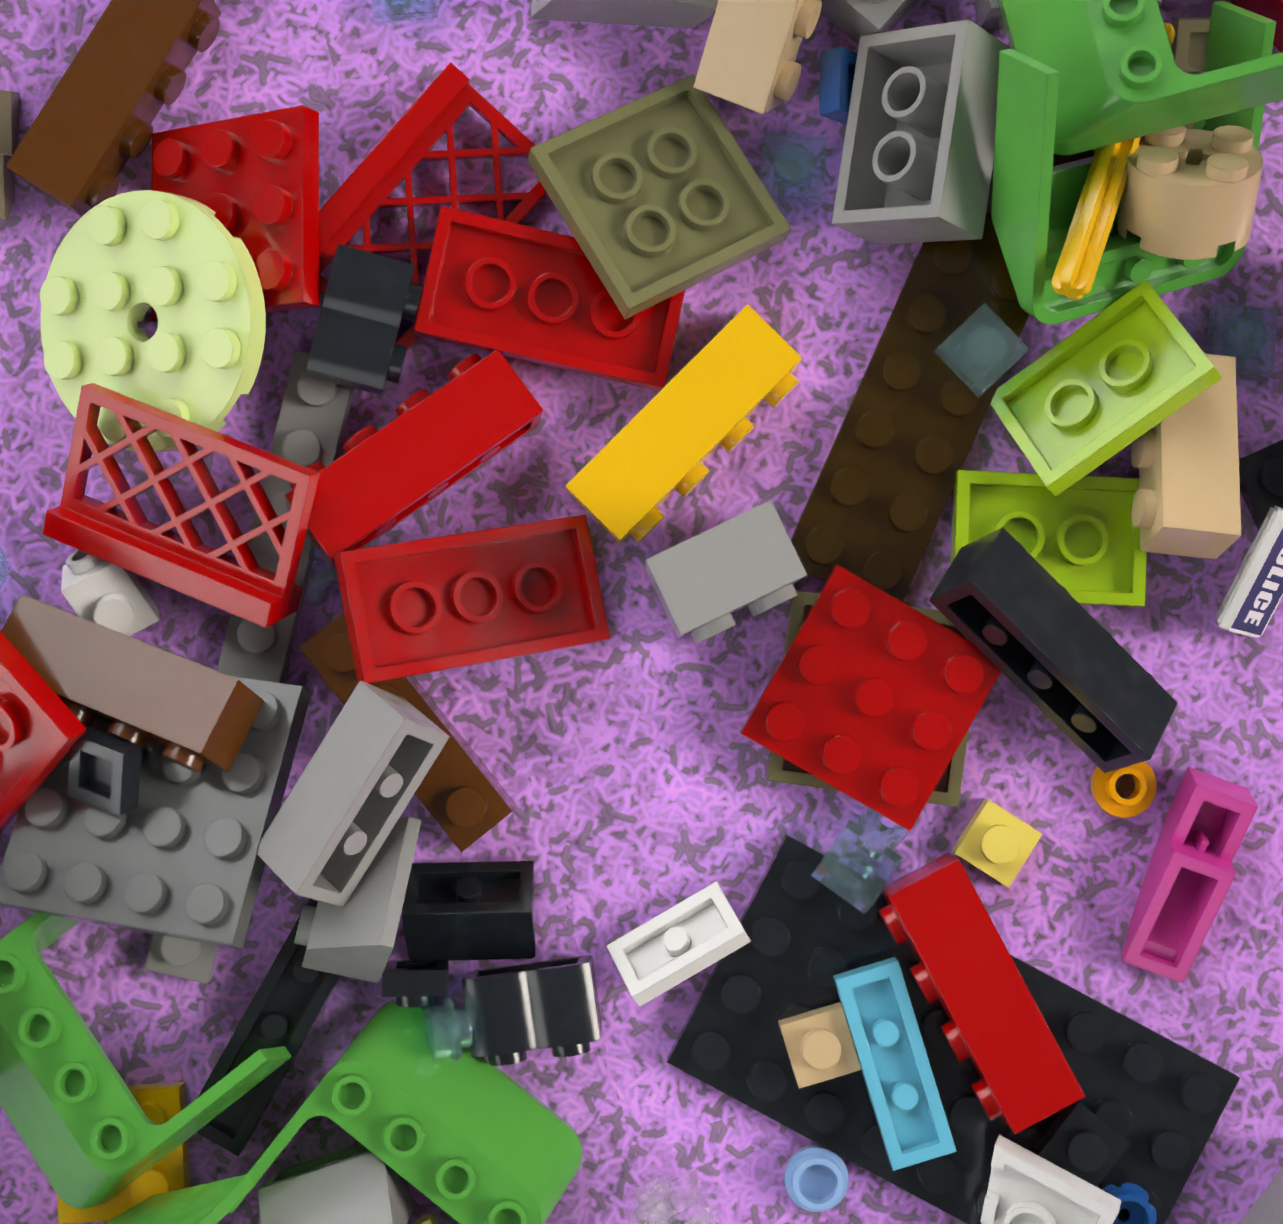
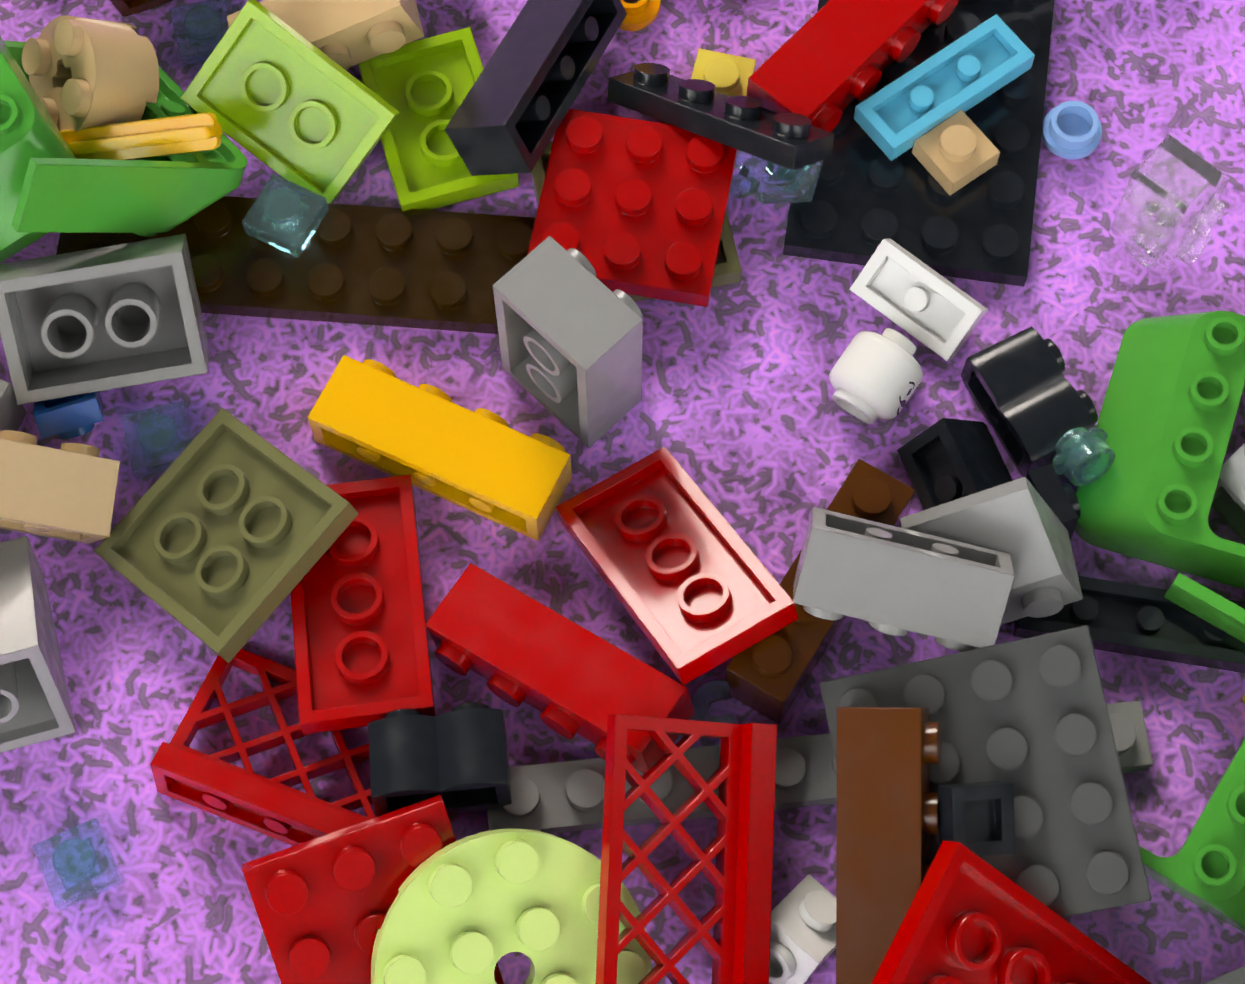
camera: 110 degrees left, 20 degrees down
(611, 869) = (876, 375): none -> white head
(932, 818) = (730, 120): none -> black plate

